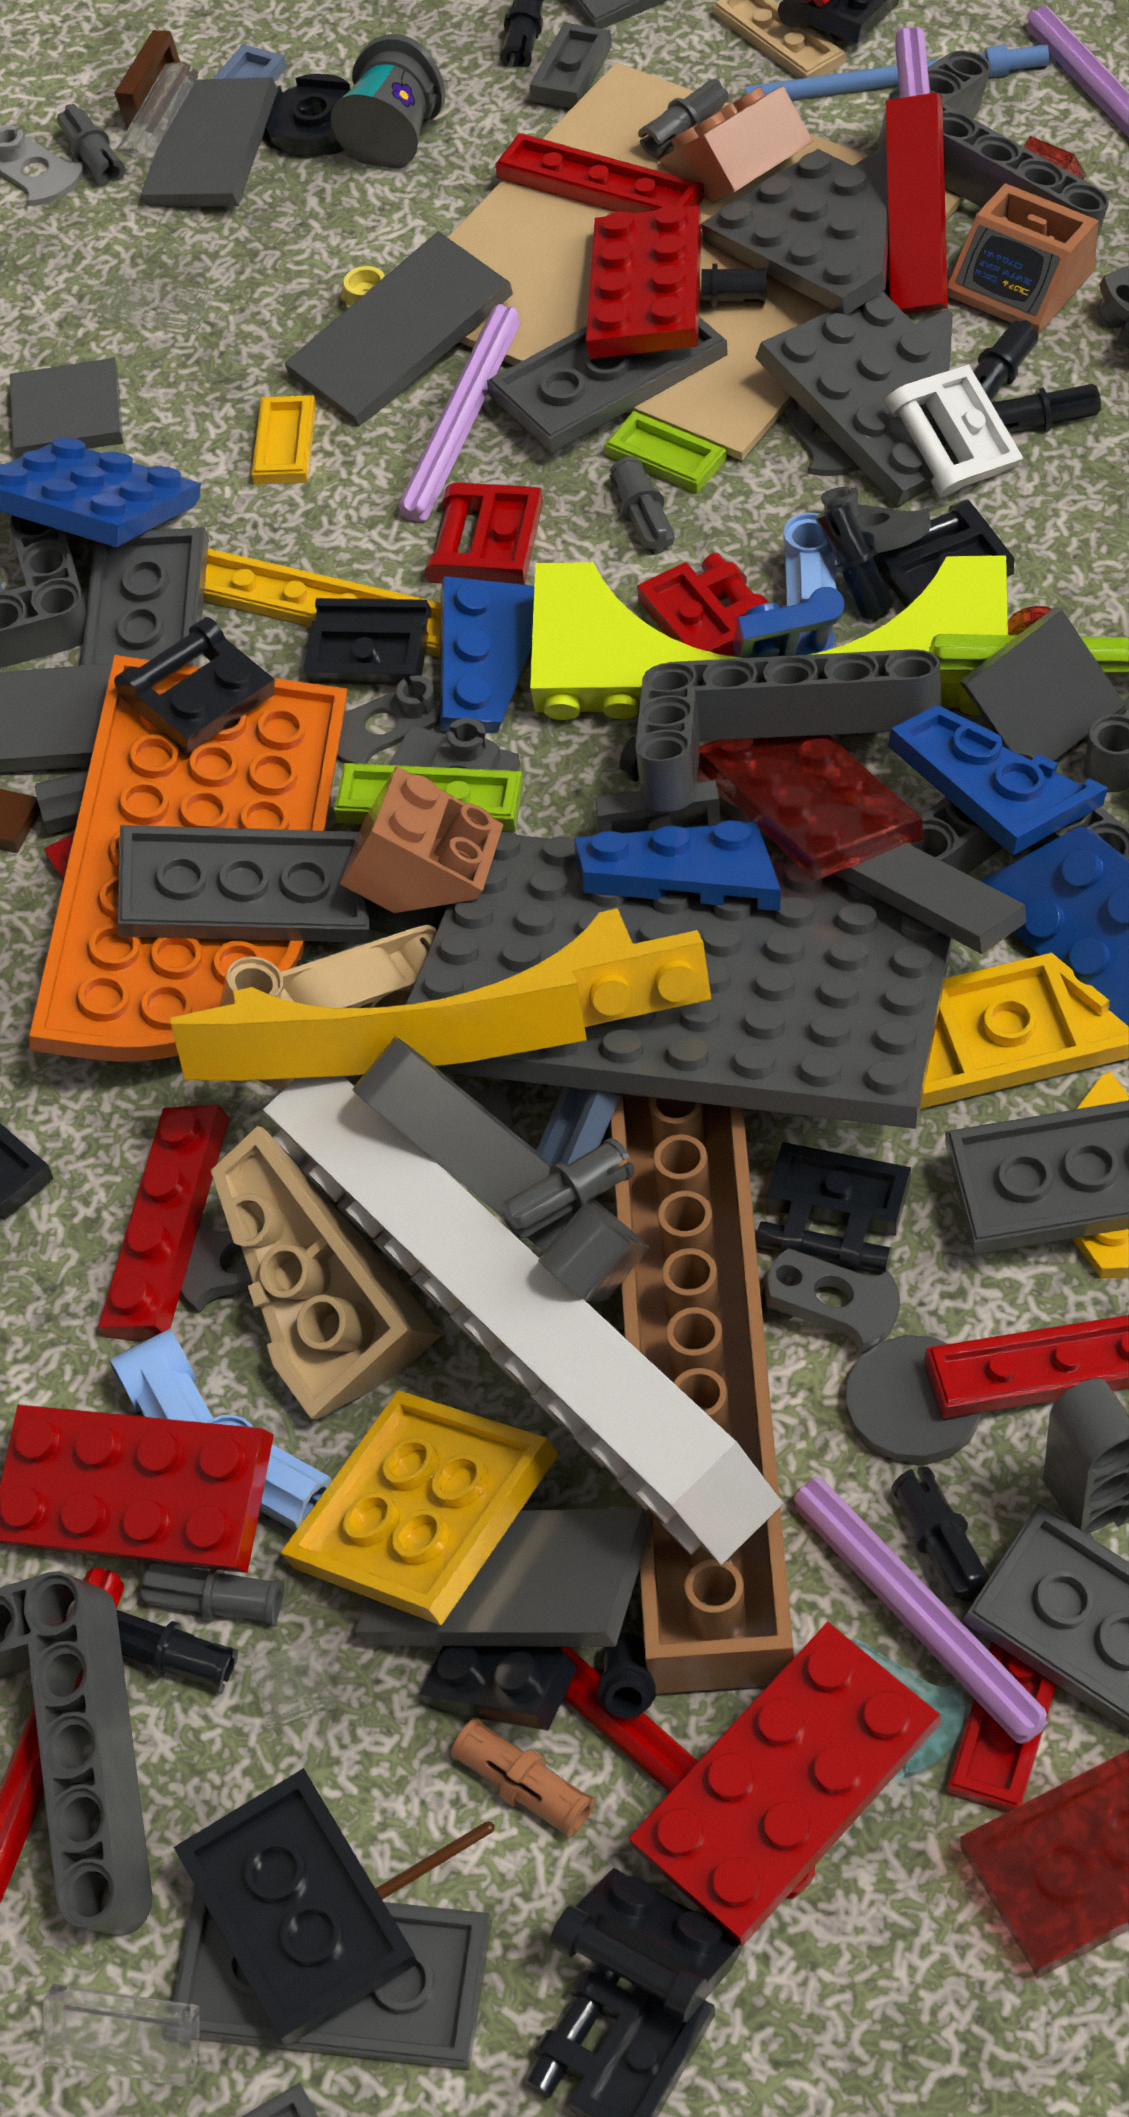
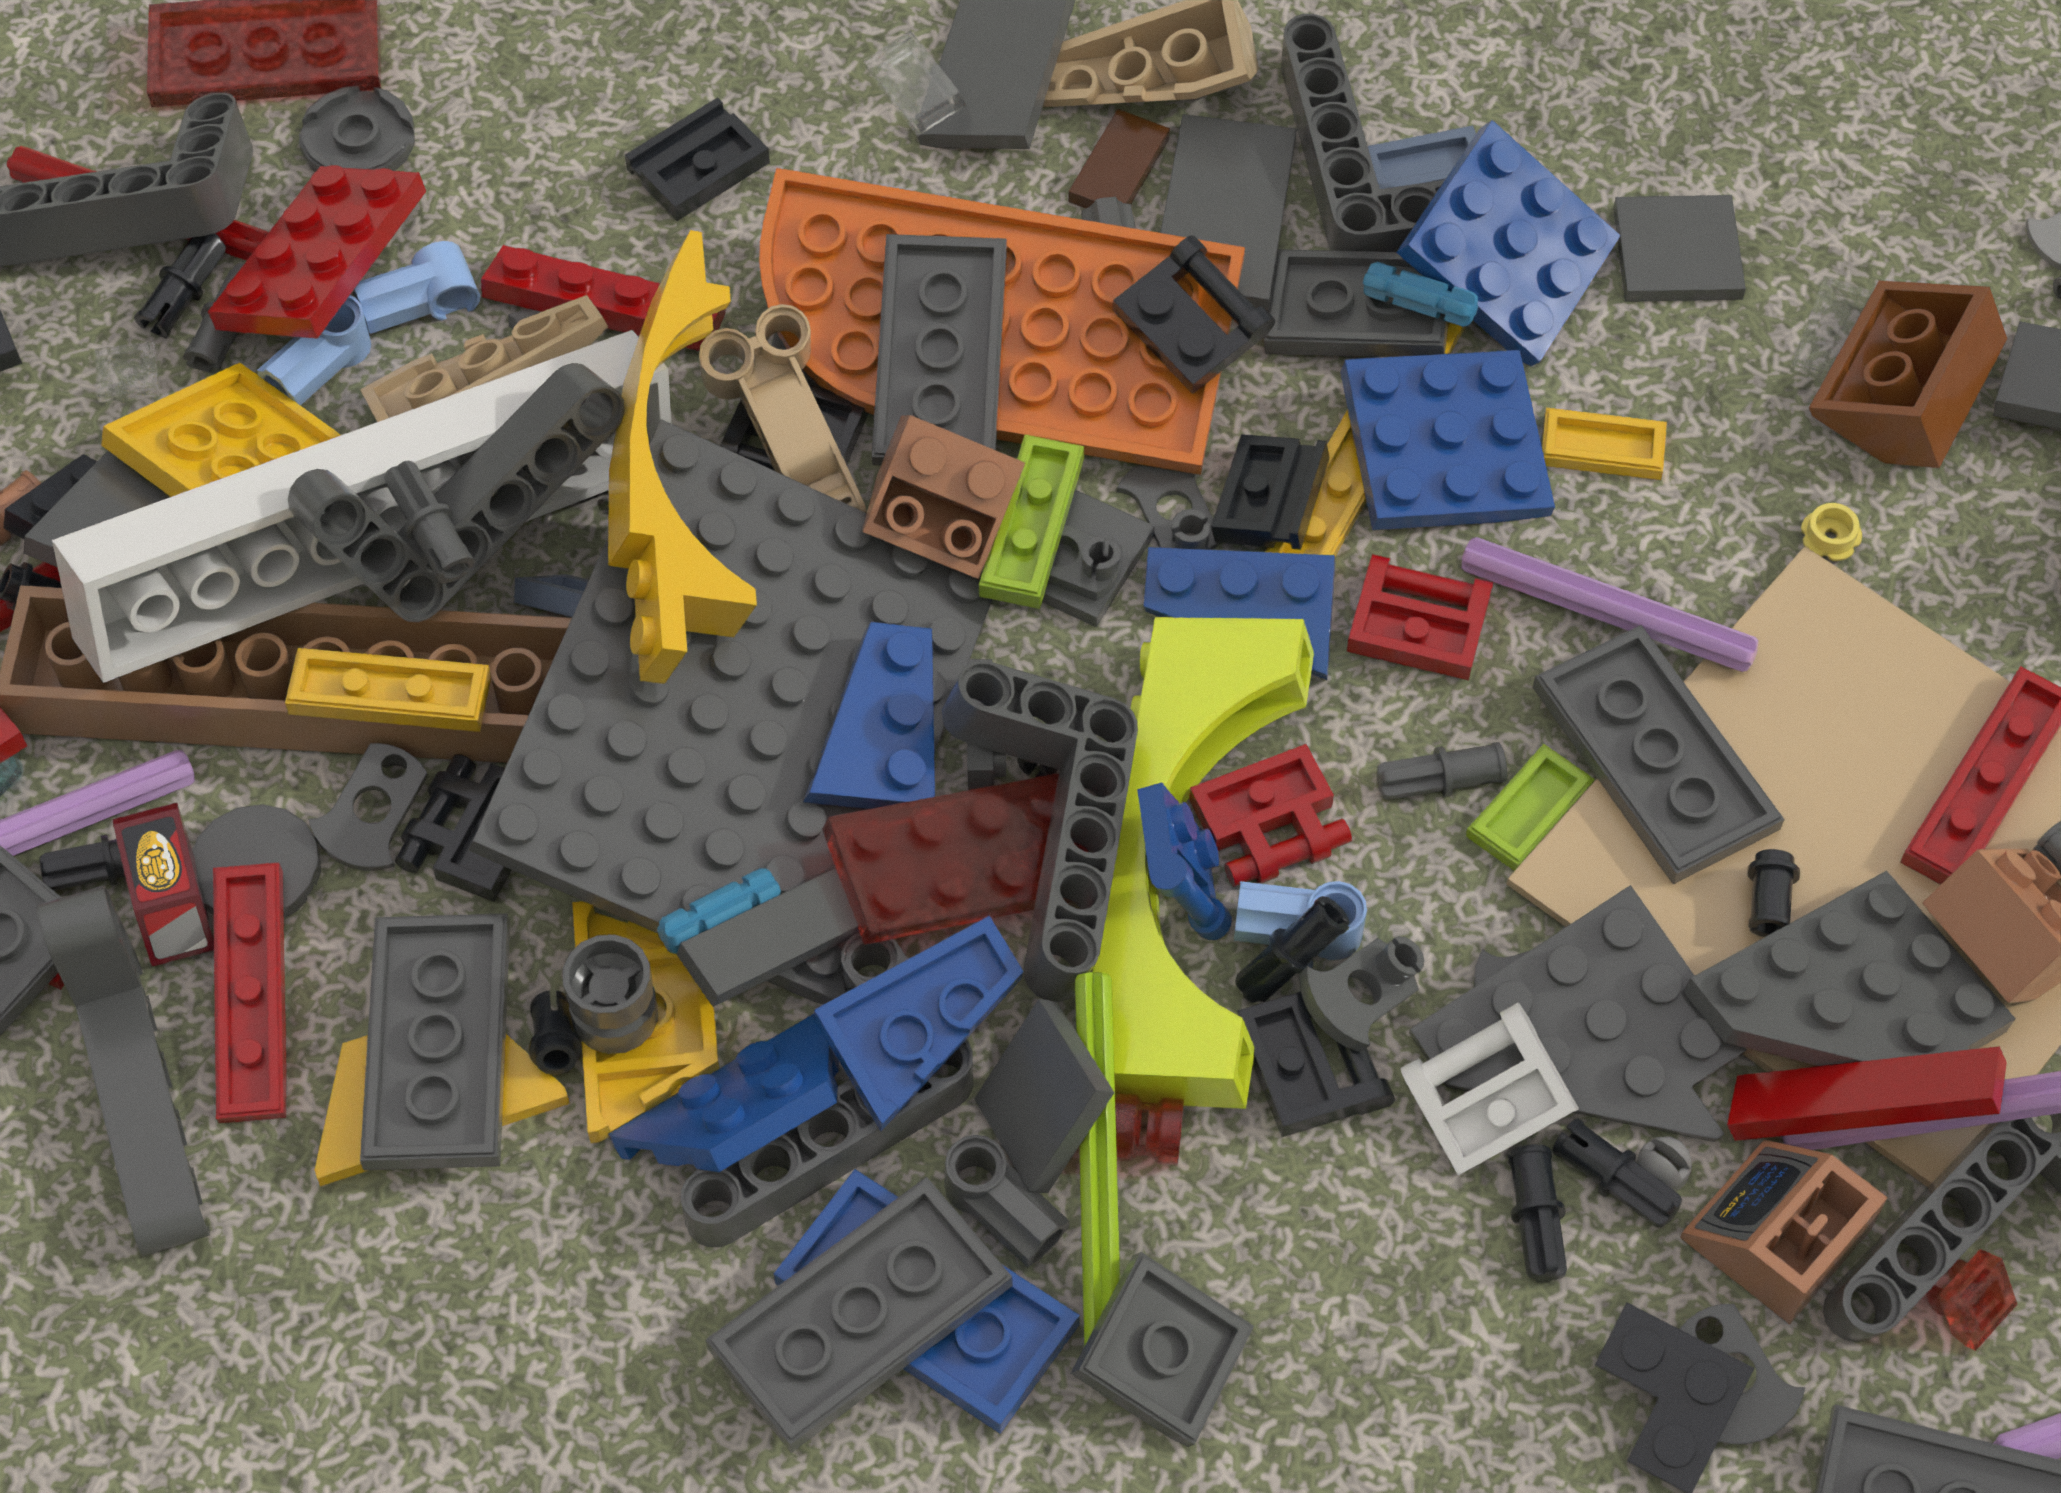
camera: 90 degrees right, 5 degrees up
(153, 539) = (1420, 294): none -> dark azure axle
(204, 239) = (1911, 370): none -> dark orange slope
(296, 531) = (1446, 439): none -> blue plate
(398, 328) = (1753, 555): dark grey tile -> none
(644, 282) = (1778, 793): red plate -> none
(729, 1256) = (388, 689): none -> yellow tile
(925, 933) = (717, 908): none -> dark azure axle
(966, 1450) = (163, 884): none -> slope
(975, 332) = (1660, 1166): none -> light grey hinge
(1025, 1013) = (610, 994): none -> dark grey wheel
(1052, 1087) = (554, 1044): none -> black pin

